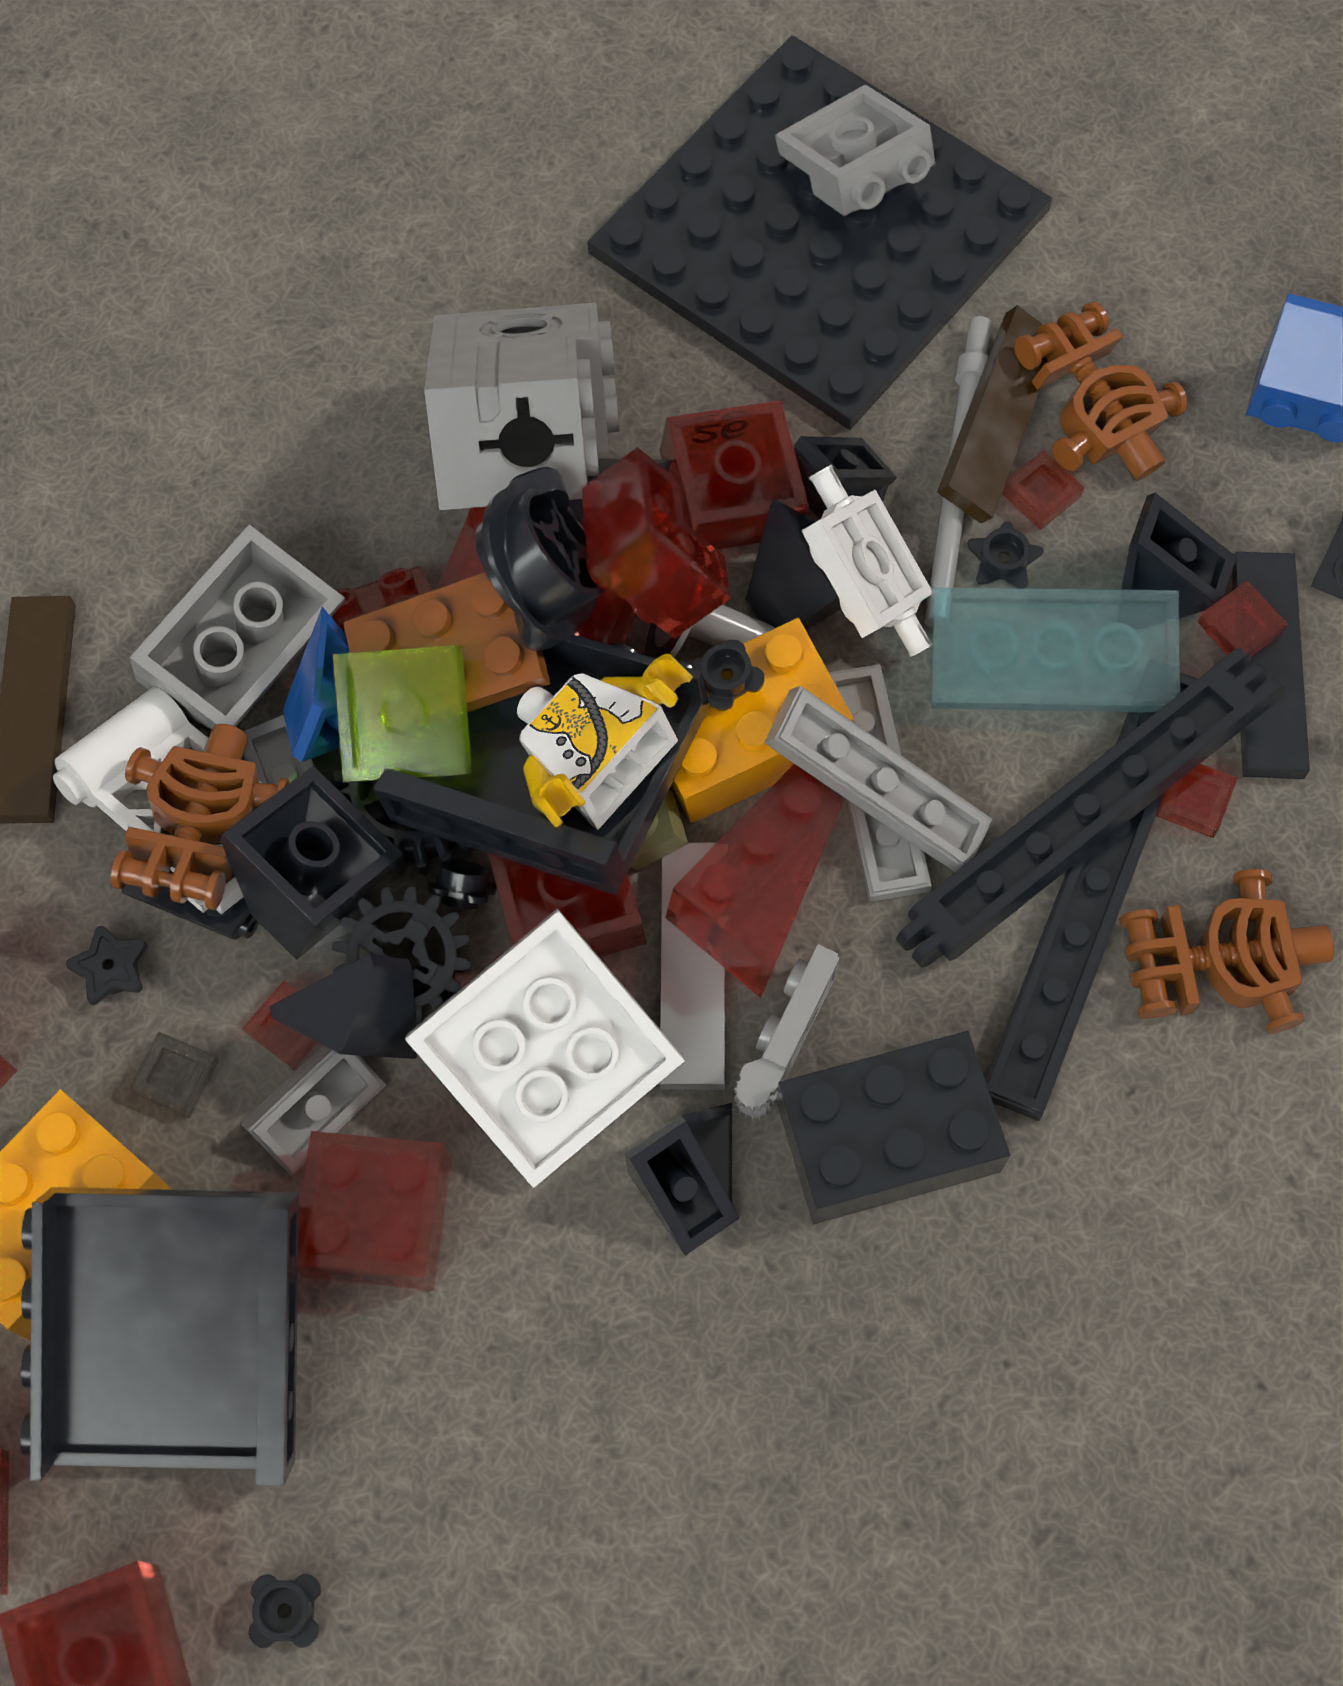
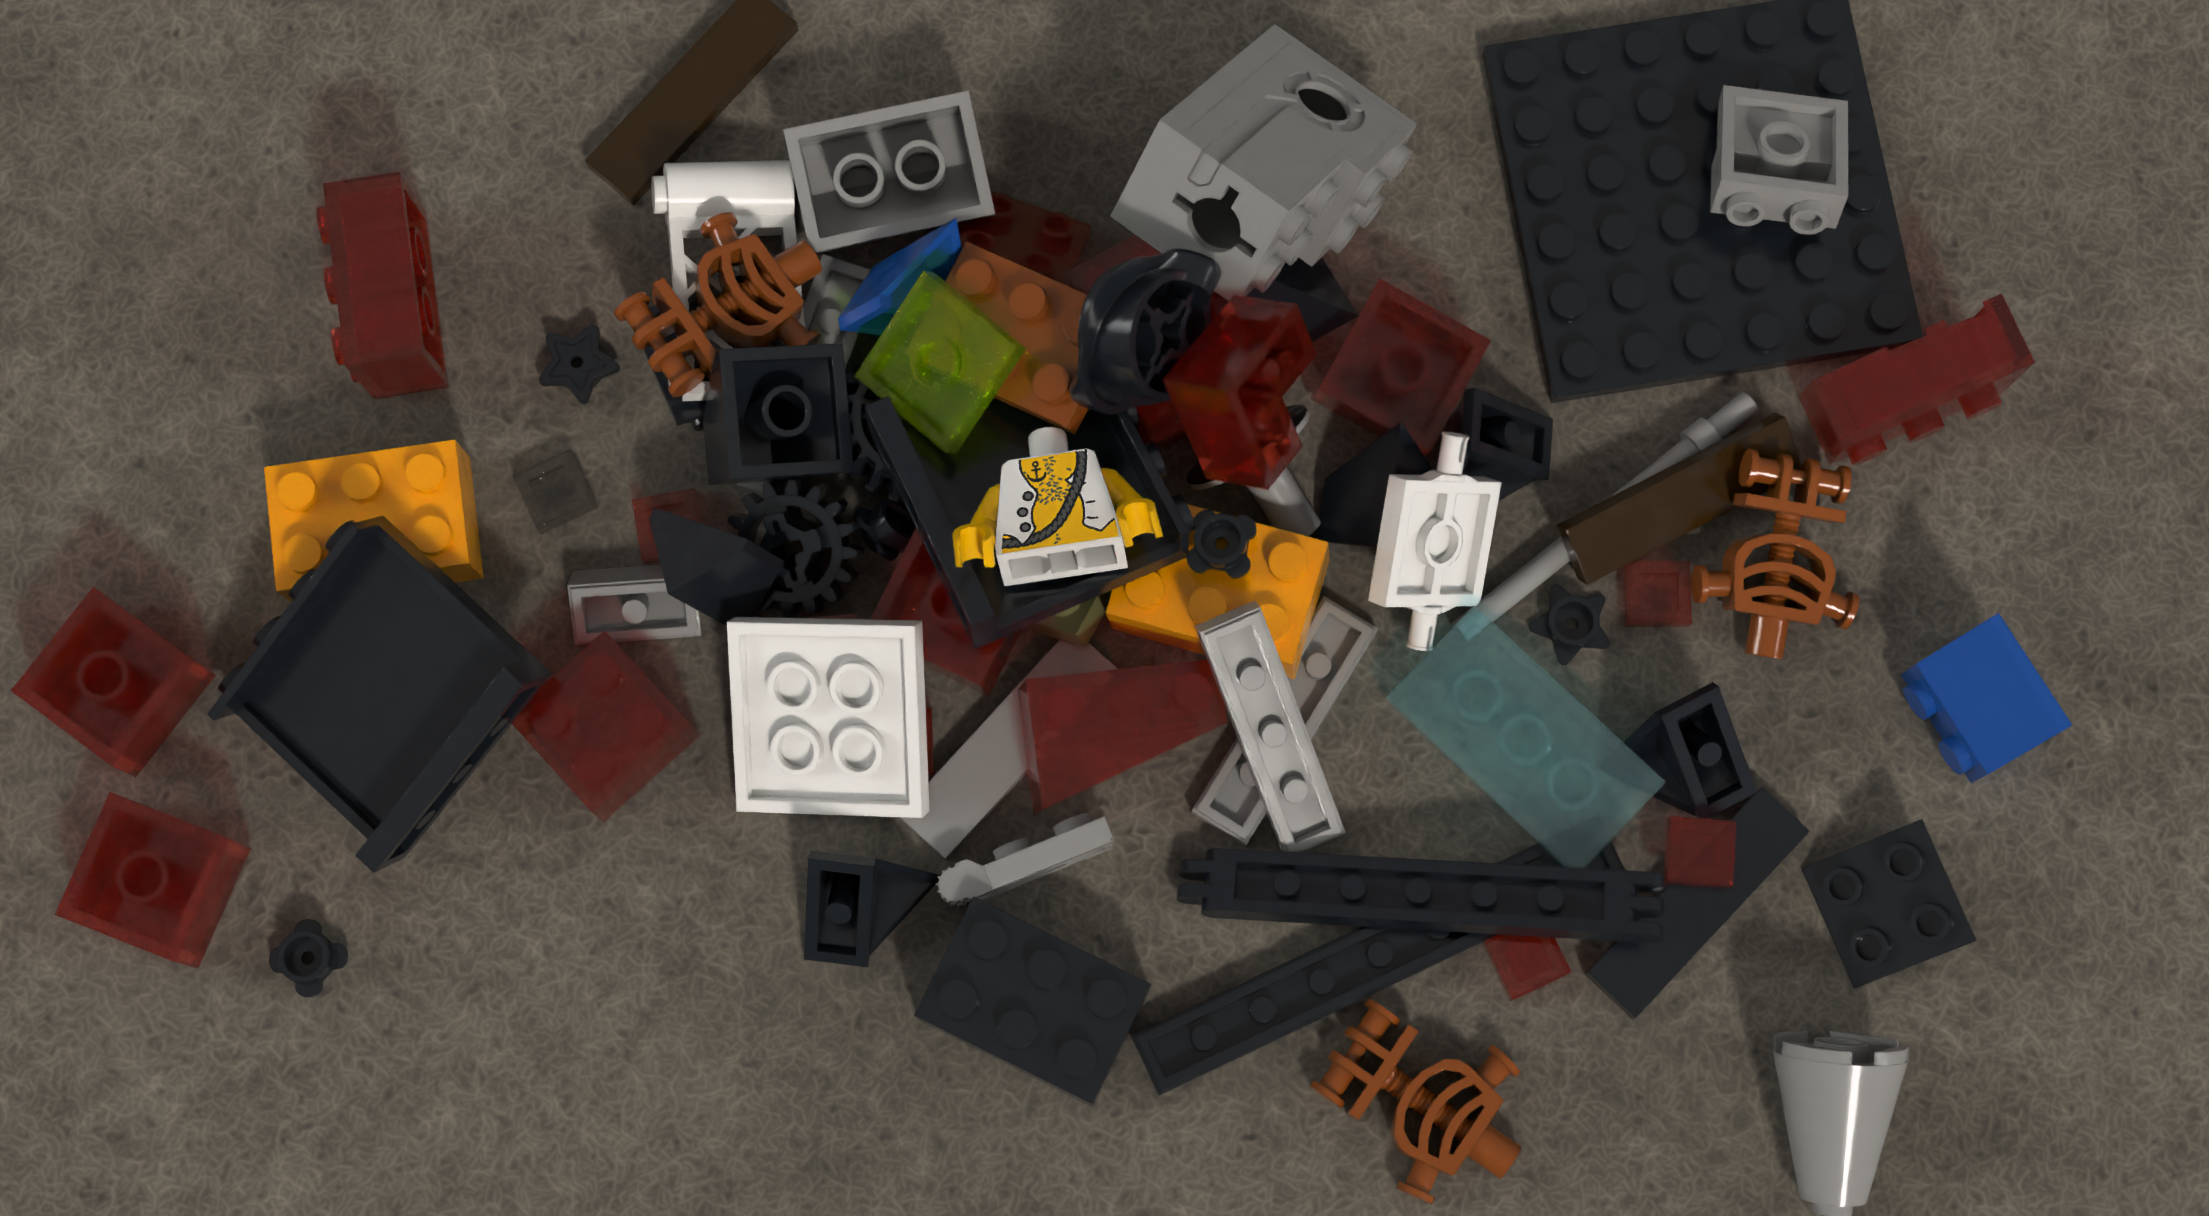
camera: 40 degrees right, 10 degrees up
(1081, 216) = (1917, 384): none -> clear red wedge

